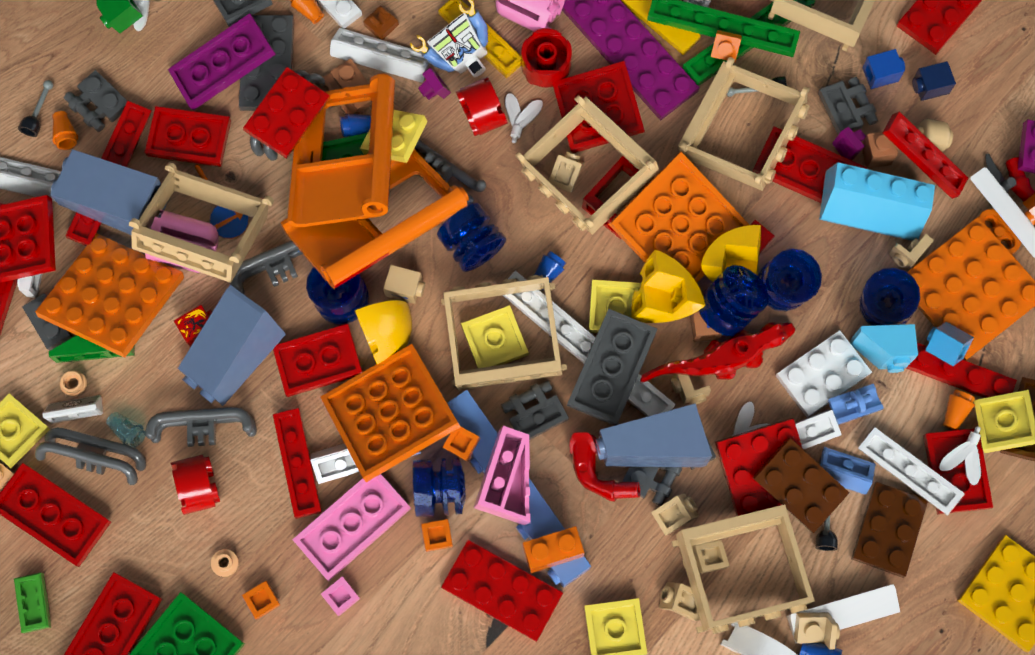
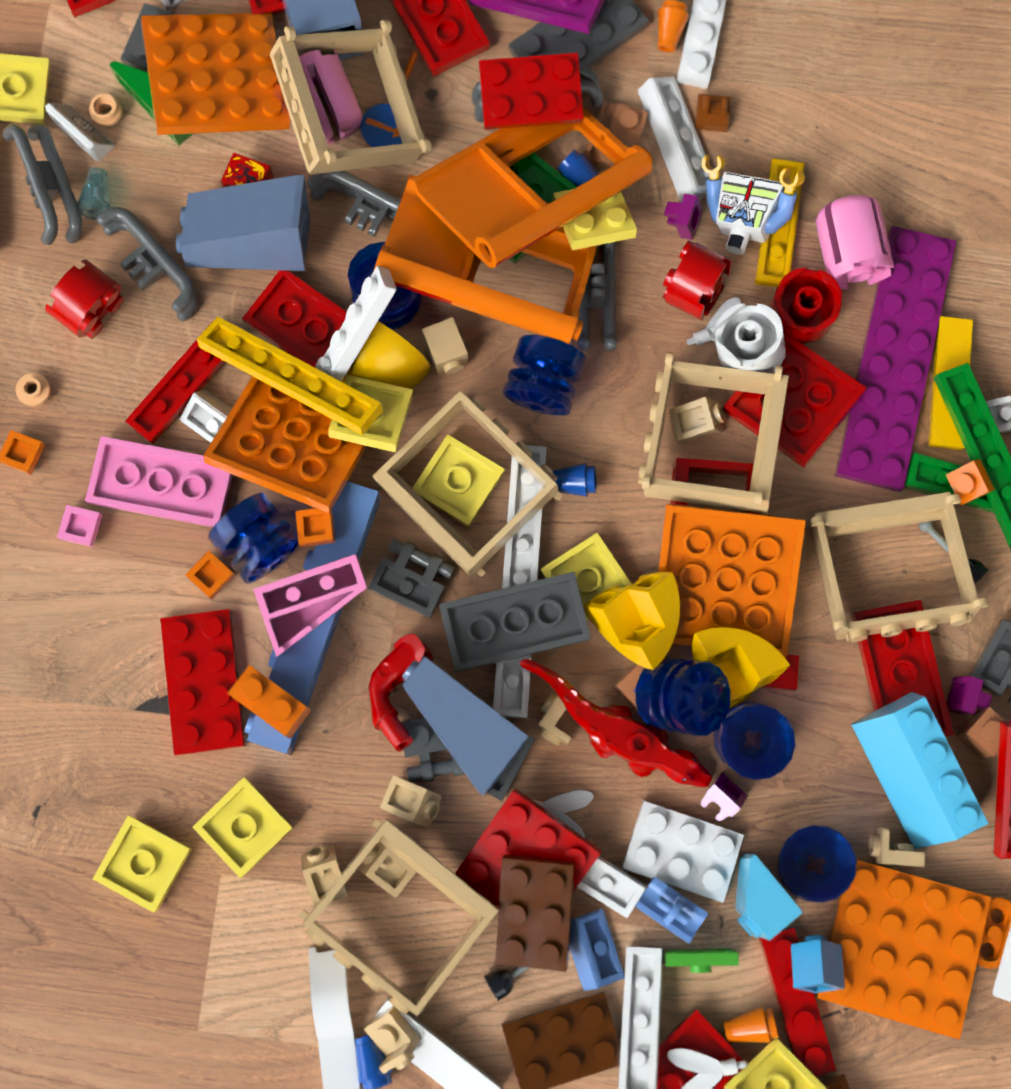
camera: 50 degrees right, 5 degrees up
(351, 387) = (290, 375): none -> yellow plate
(358, 324) = (358, 324): none -> white plate
(415, 356) = (388, 426): none -> light yellow plate
(544, 102) = (750, 338): none -> white brick
(809, 322) = (726, 795): none -> tile
(897, 409) = (700, 959): none -> bright green plate

